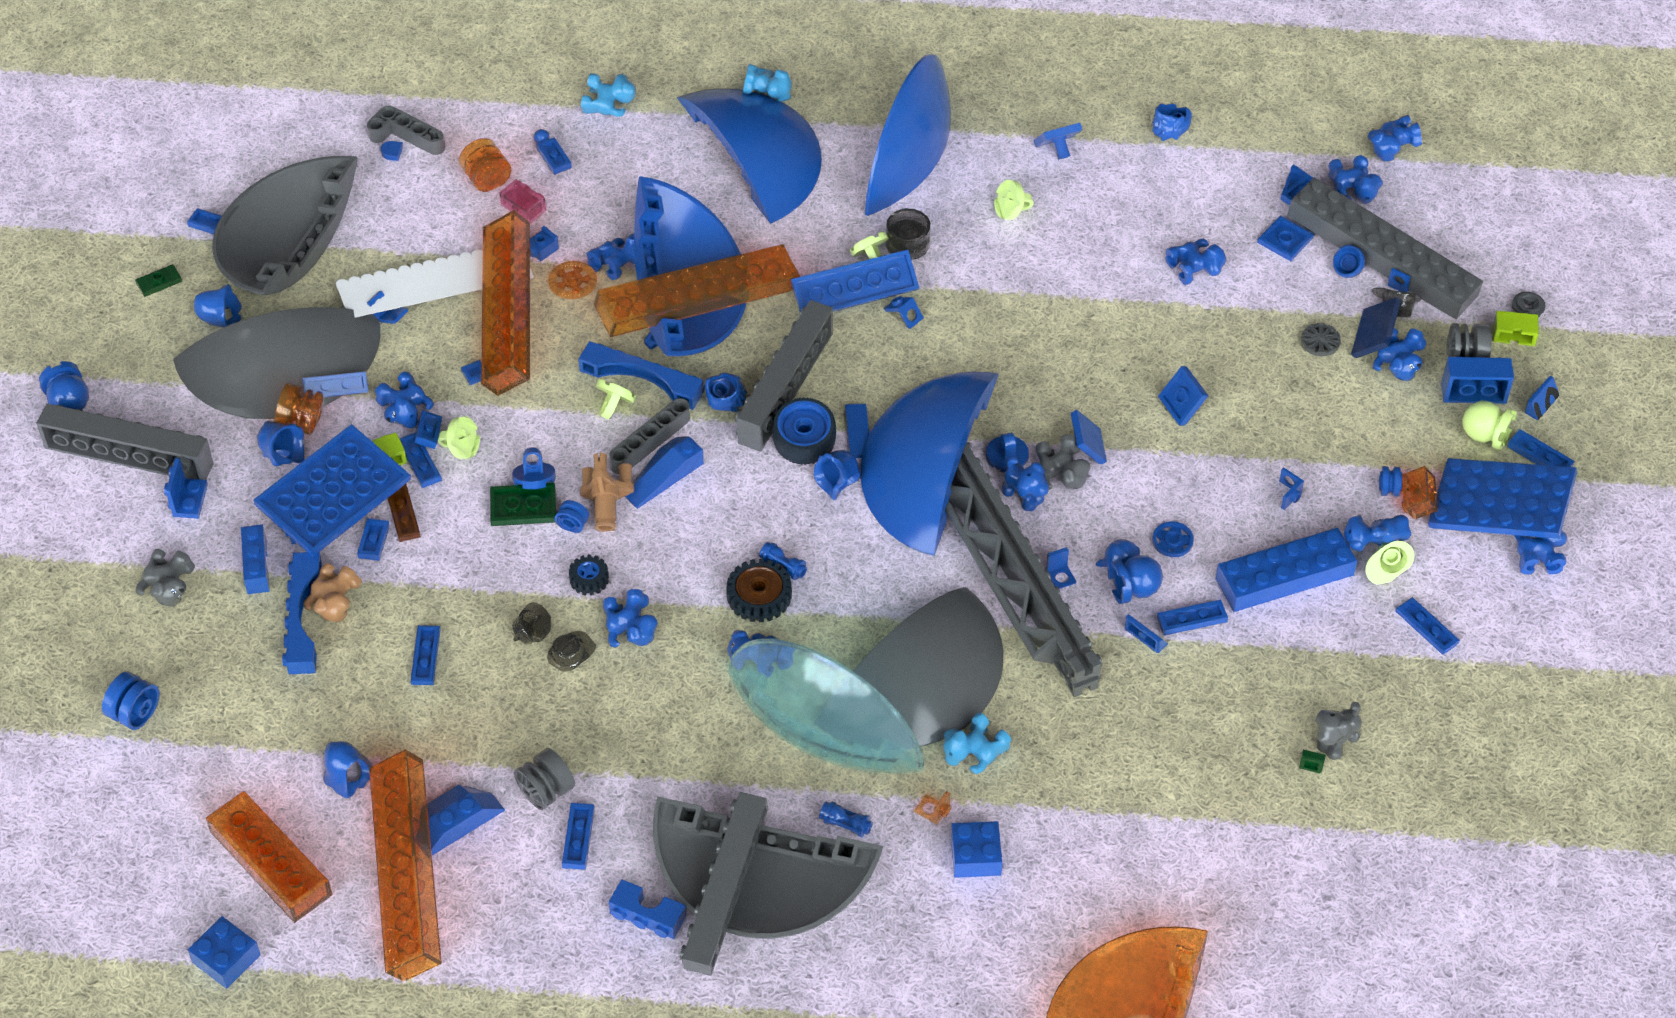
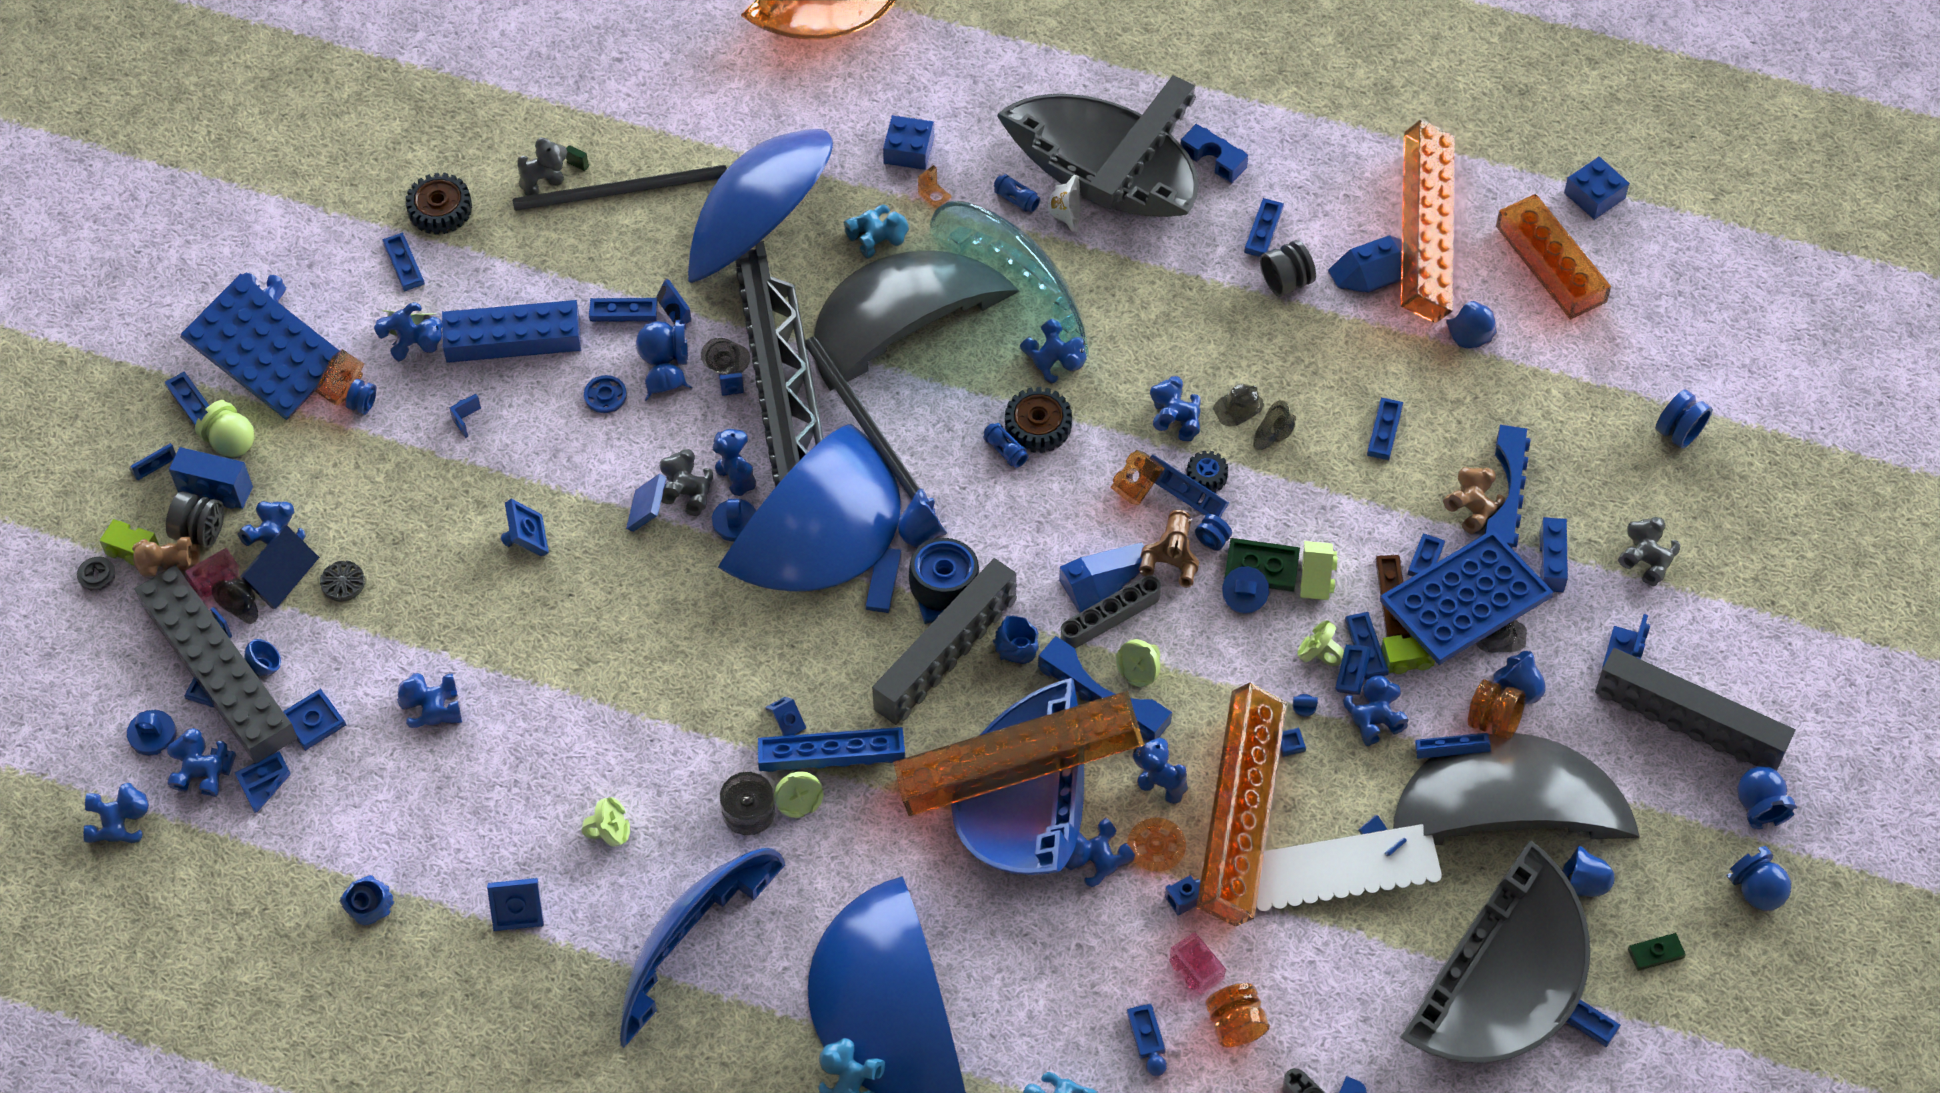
camera: 165 degrees left, 5 degrees up
(72, 330) = (1762, 882): none -> blue tile
(467, 400) = (1304, 705): none -> blue plate
(471, 501) = (1317, 569): none -> yellowish green brick
(578, 311) = (1153, 760): none -> blue animal
(591, 543) = (1189, 490): none -> blue hinge
(651, 543) = (1148, 470): none -> clear orange brick
(789, 811) = (1066, 202): none -> white hat
(920, 553) = (862, 416): none -> dark grey axle
(1072, 579) = (725, 356): none -> clear smoke piece
(1096, 738) = (756, 197): none -> blue brick
(1242, 750) = (619, 187): none -> dark grey axle
(1407, 204) = (151, 732): none -> blue tile
(1415, 672) = (438, 203): none -> wheel
(1429, 311) = (211, 570): none -> clear pink brick
(1484, 301) = (150, 556): none -> medium nougat animal

